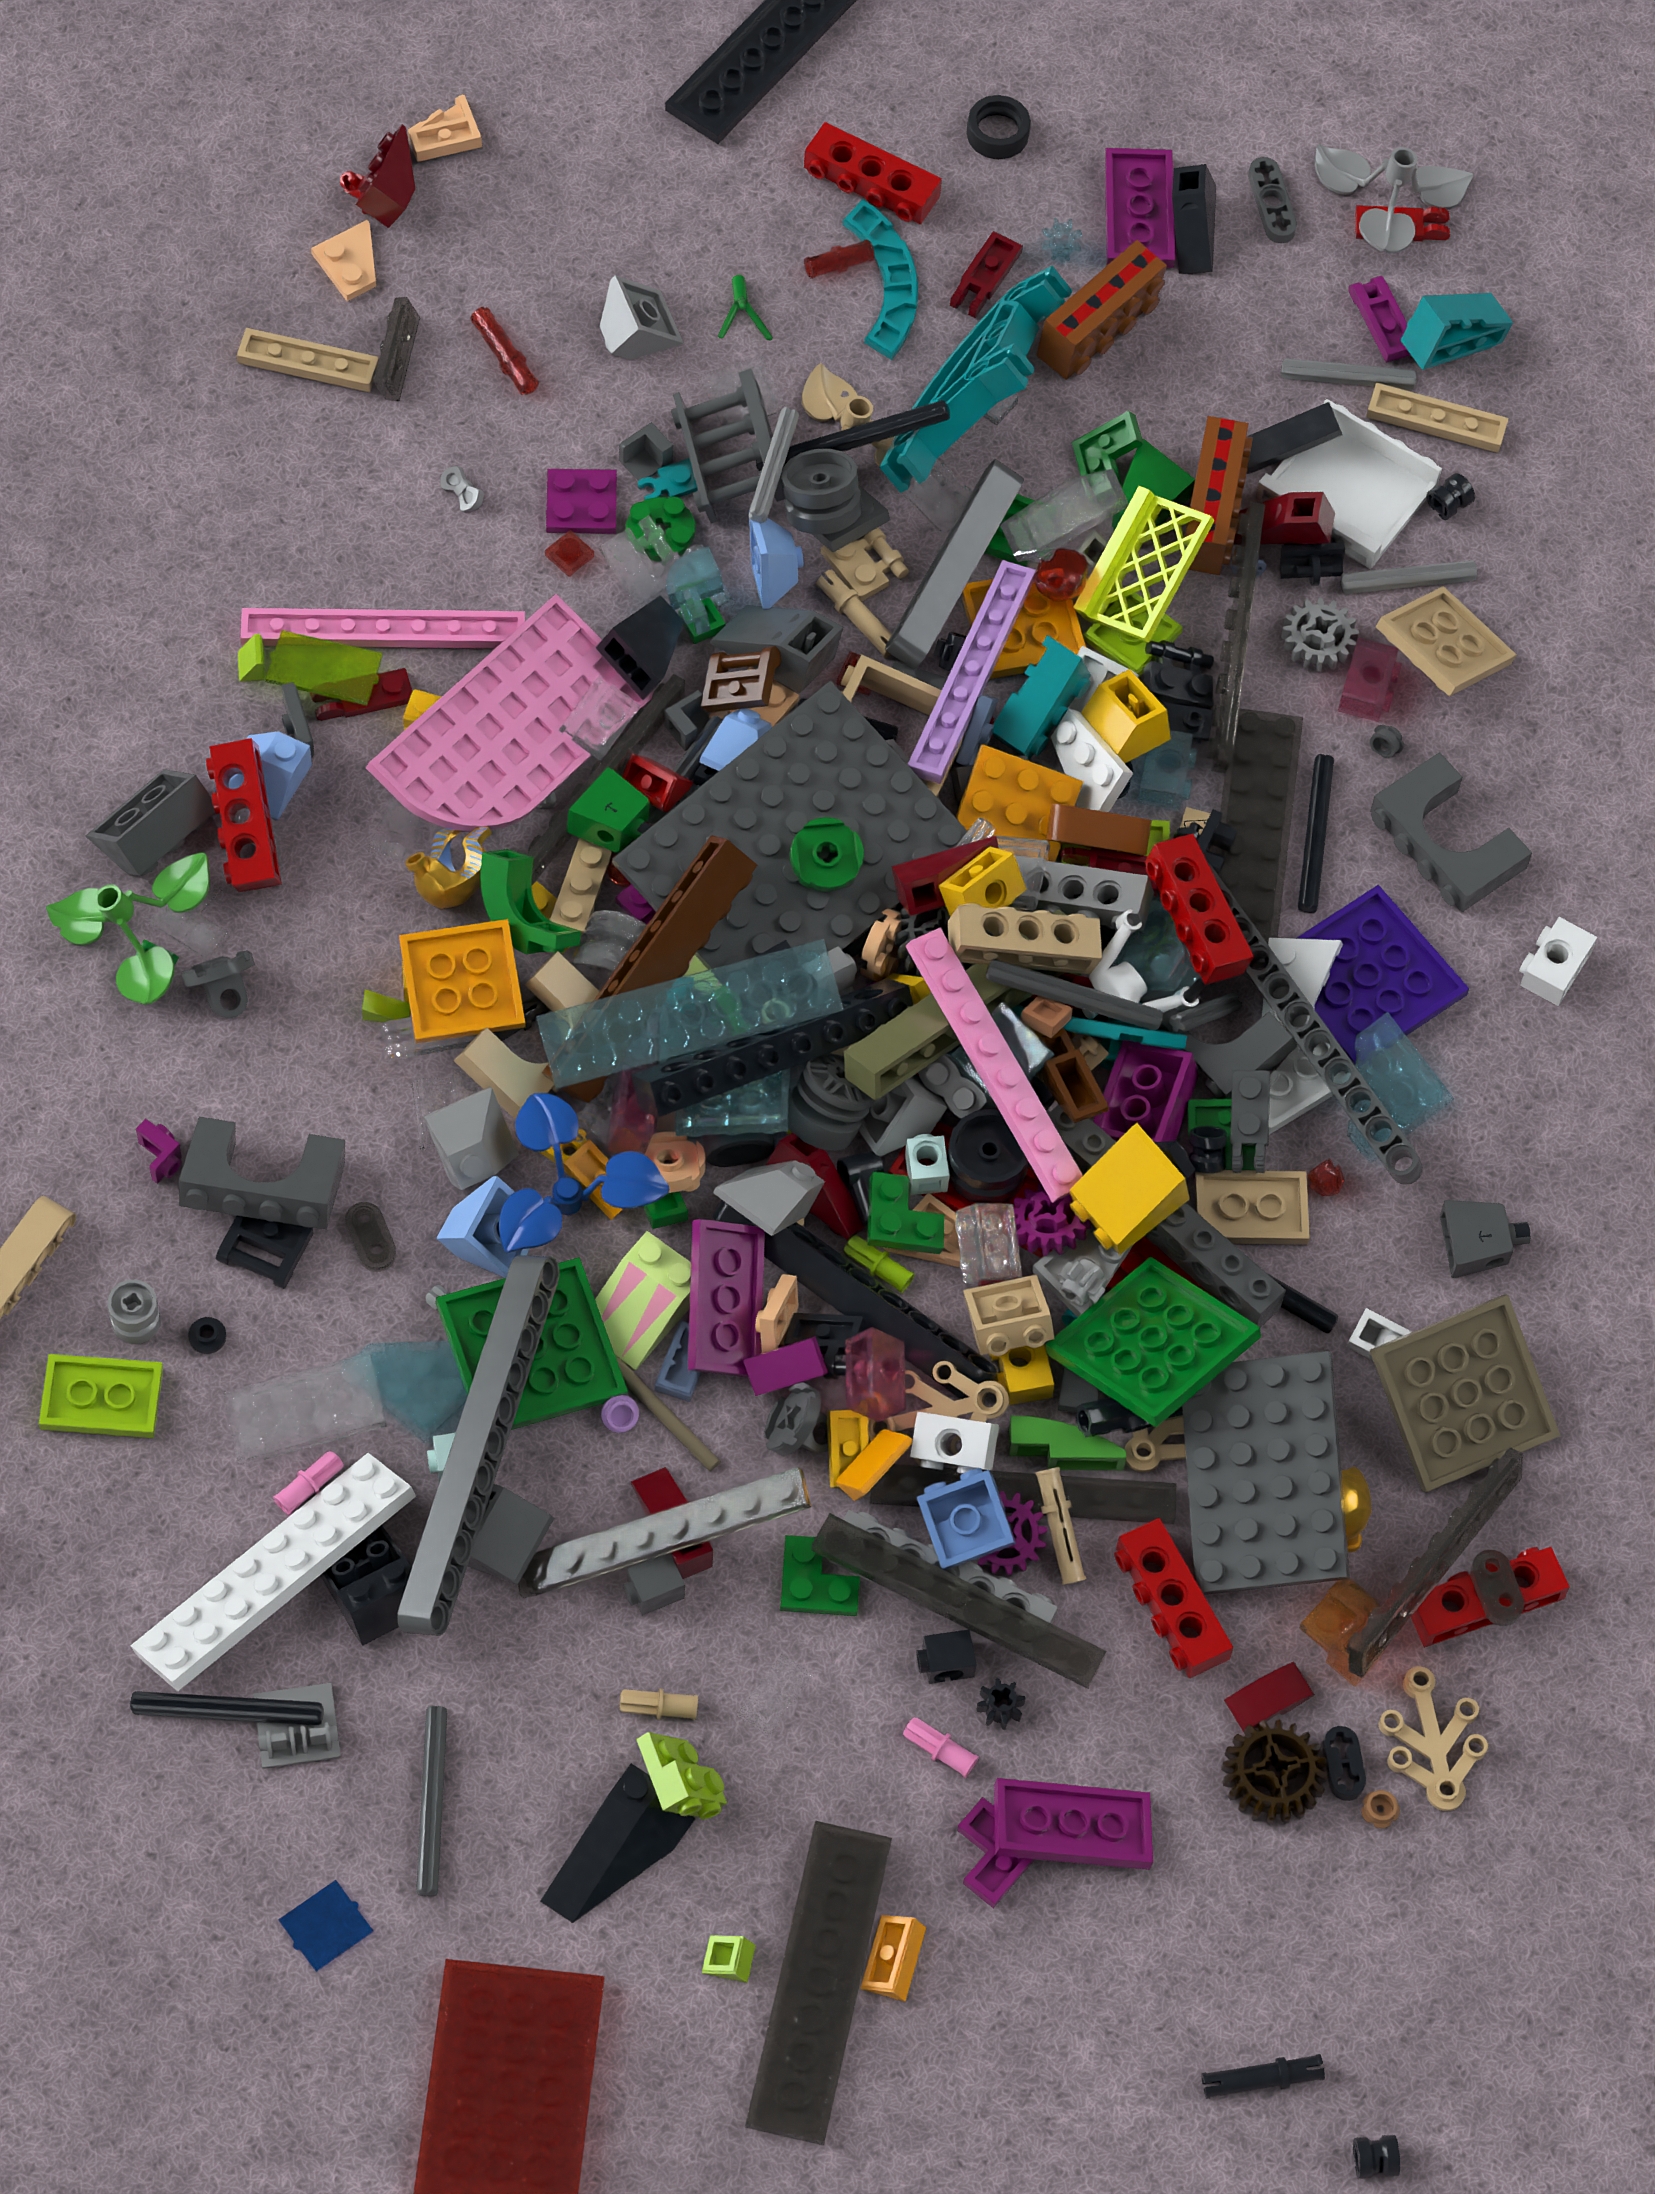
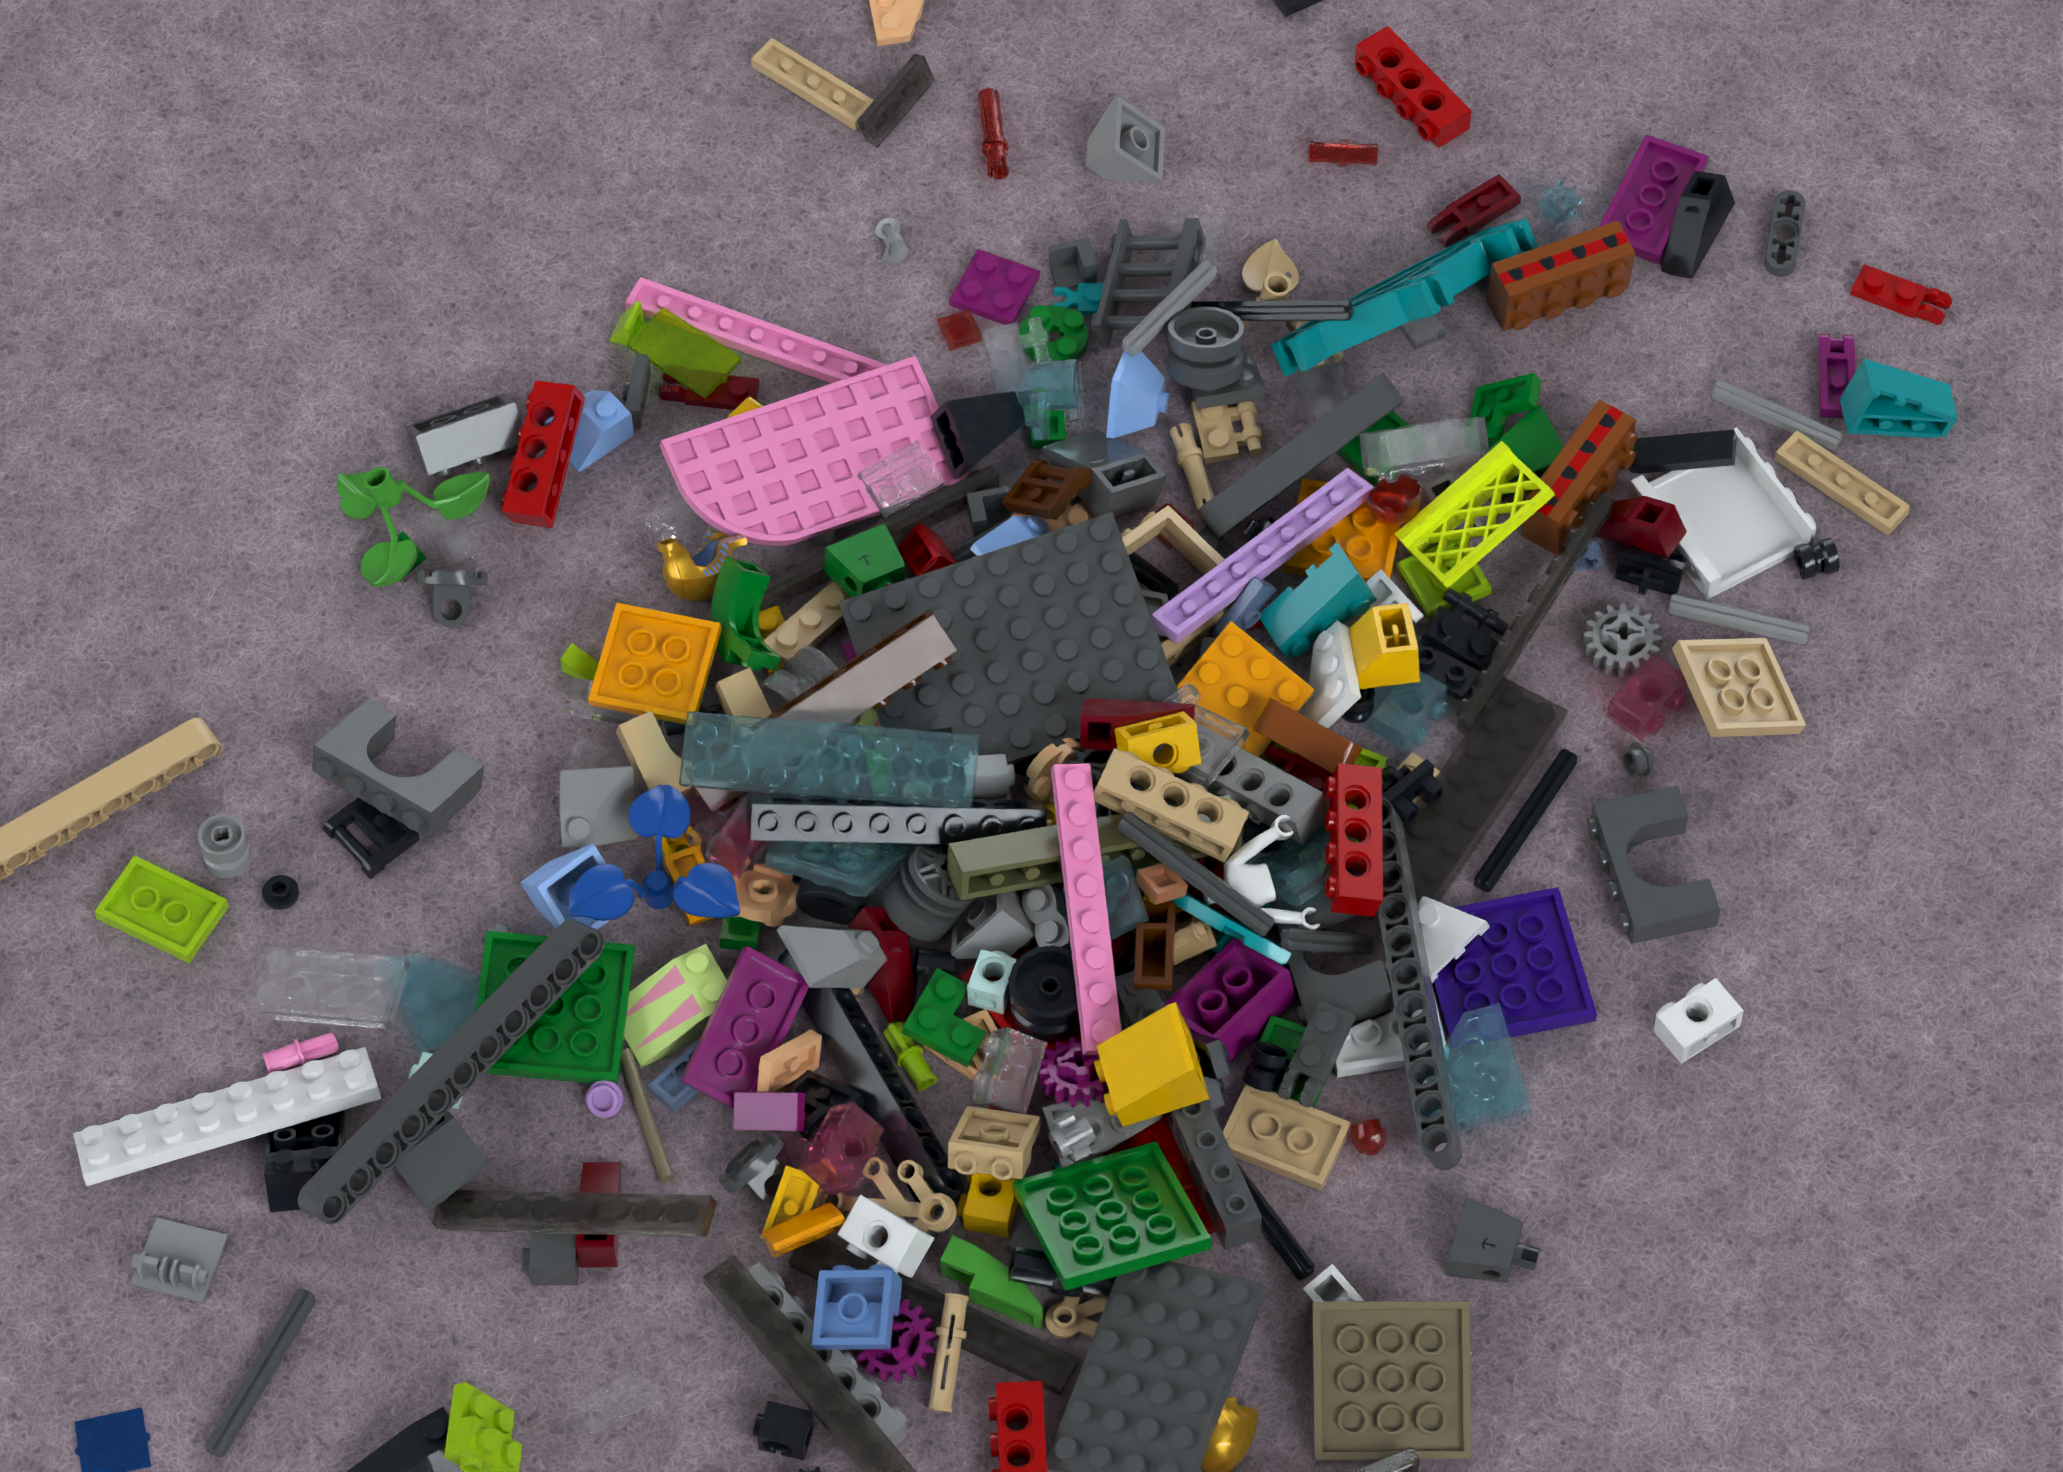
camera: 30 degrees right, 5 degrees down
(161, 1144) = (327, 711): magenta bracket -> none
(227, 1708) = (125, 1219): black axle -> none
(370, 1235) = (467, 859): clear smoke plate -> none
(658, 1703) = (504, 1368): tan axle -> none
(742, 303) = (1232, 161): green plant -> none
(809, 1590) = (695, 1323): green plate -> none
(814, 871) = (1021, 649): green plate -> none
(897, 274) = (1389, 191): teal tile -> none
(995, 147) = (1549, 103): black tyre -> none
(1390, 231) = (1880, 296): light grey plant -> none

